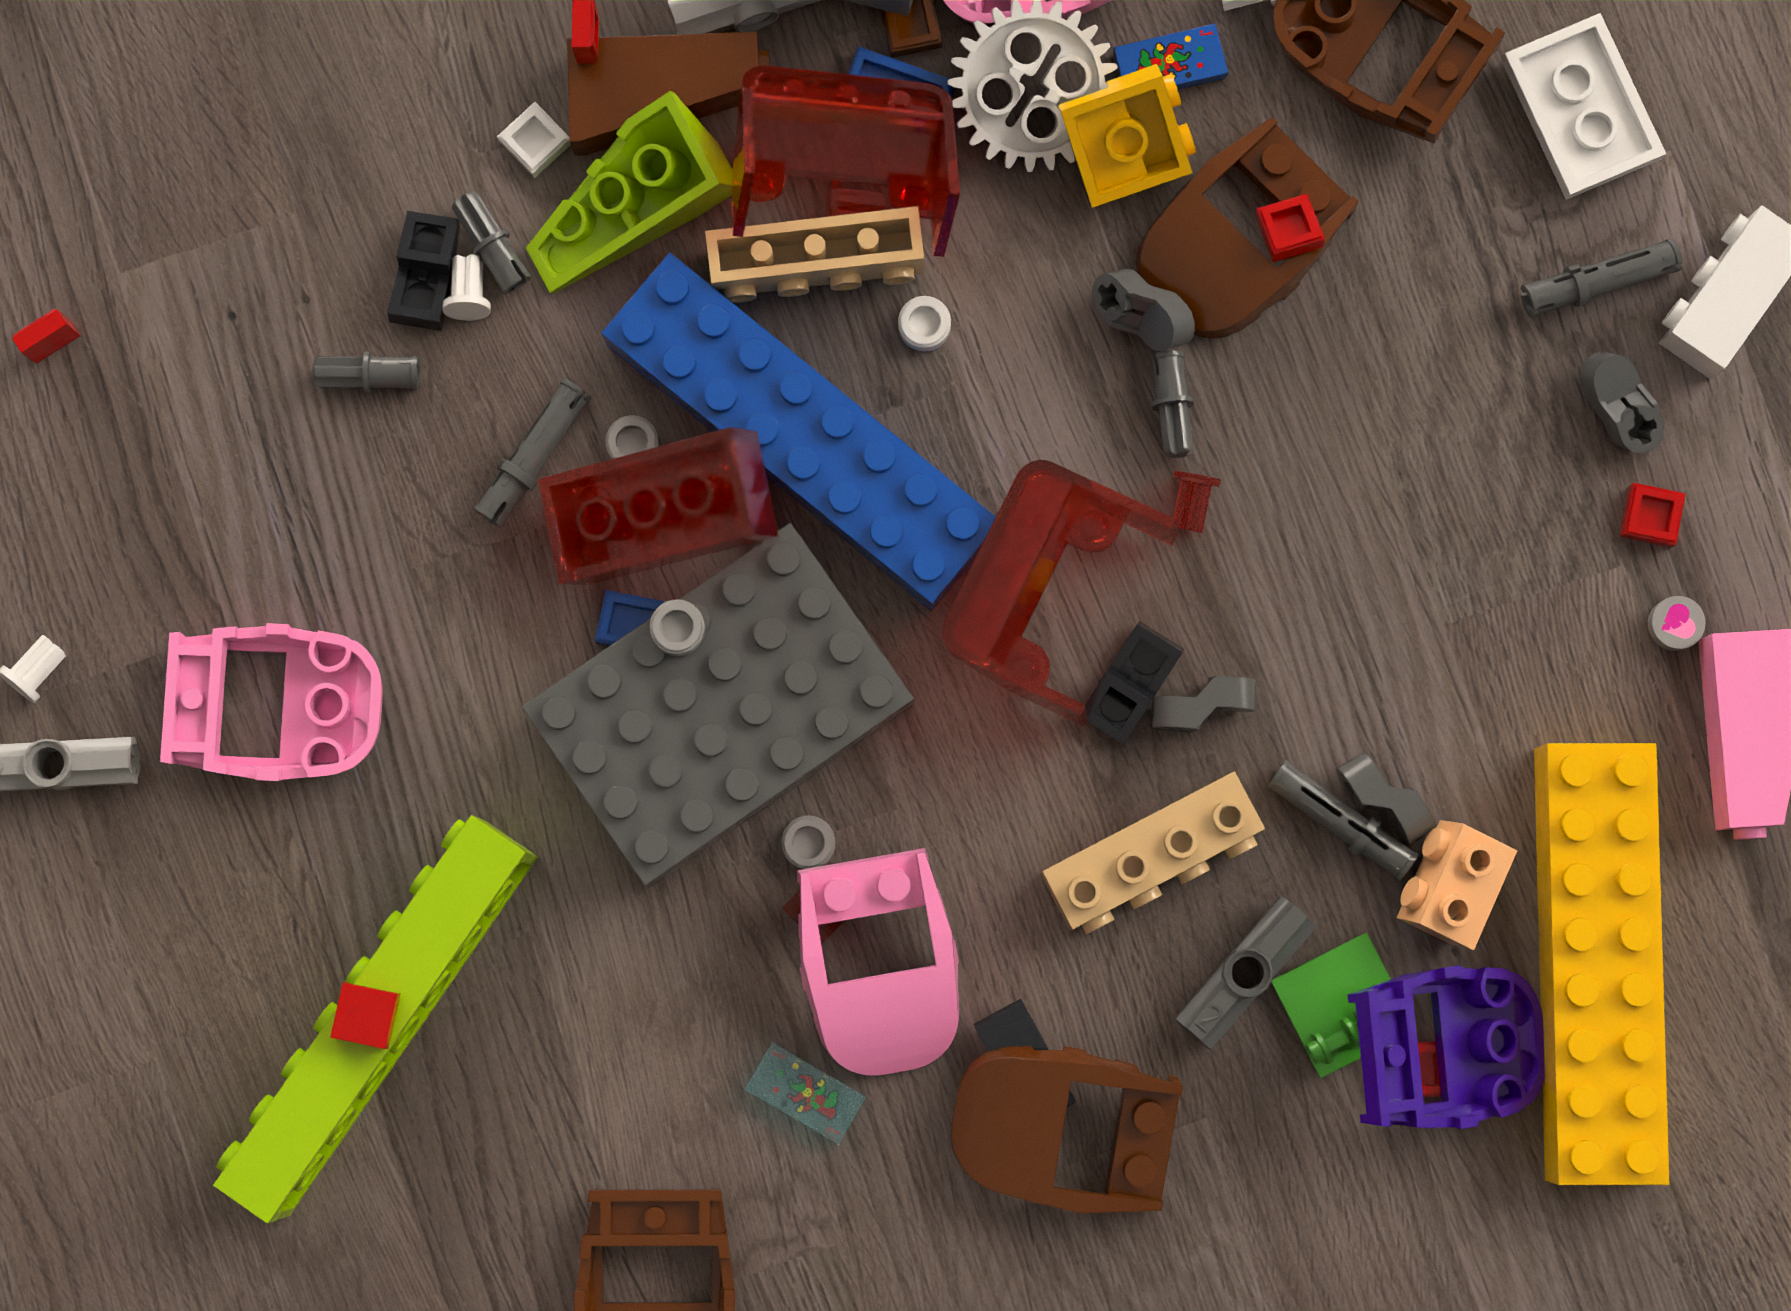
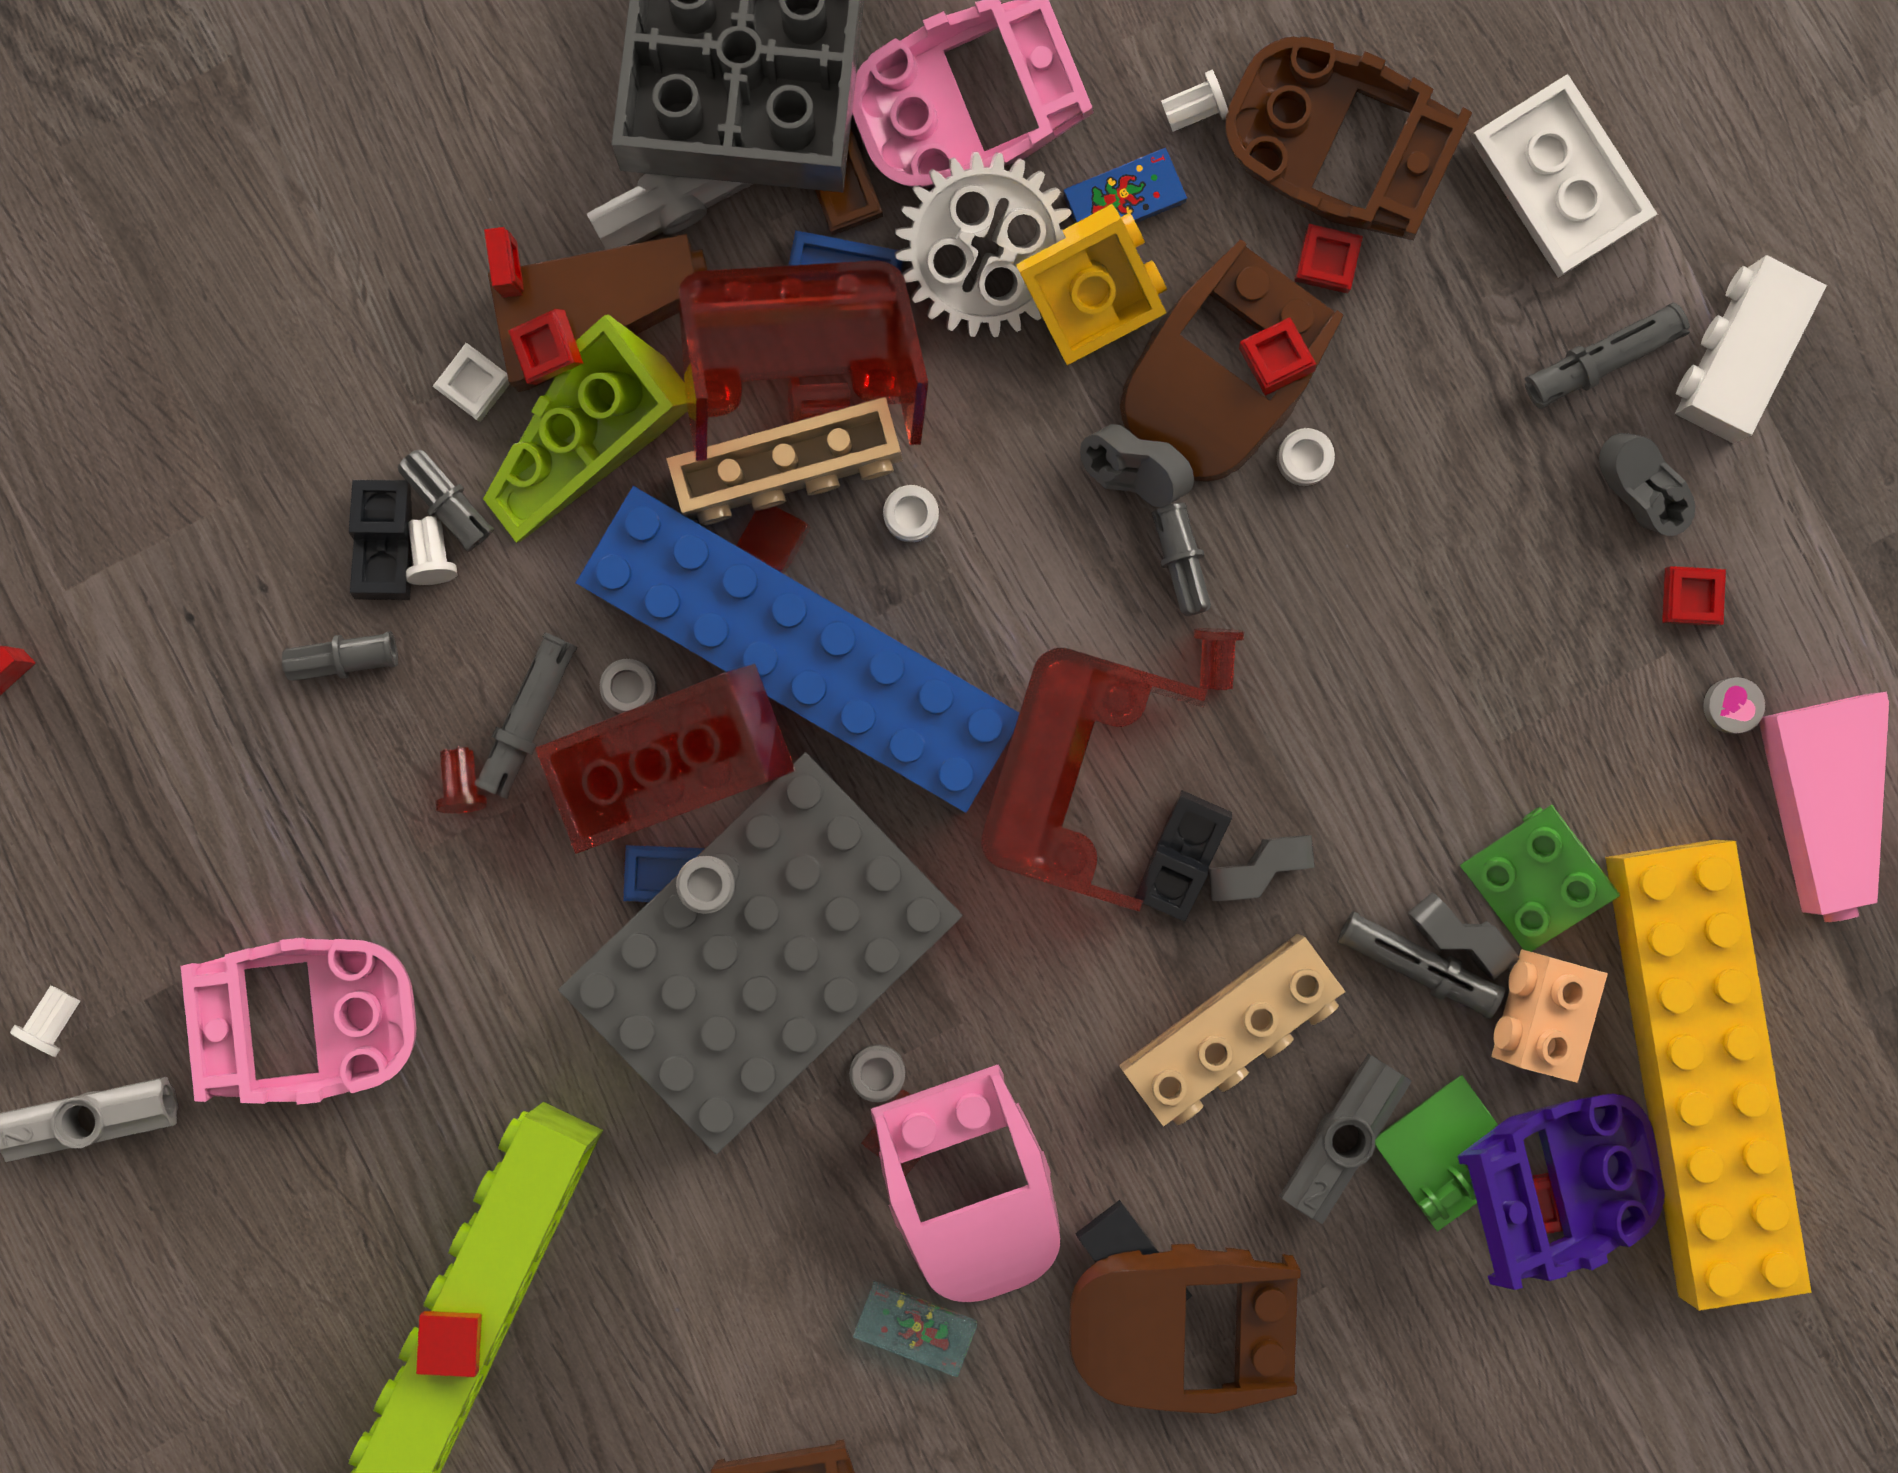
camera: 10 degrees left, 5 degrees up
(458, 507) = (458, 782): none -> clear red piece
(610, 112) = (545, 346): none -> red tile
(794, 323) = (774, 537): none -> clear red slope
(1303, 328) = (1305, 457): none -> white tile
(1352, 149) = (1328, 258): none -> red tile
(1467, 756) = (1539, 879): none -> bright green hinge

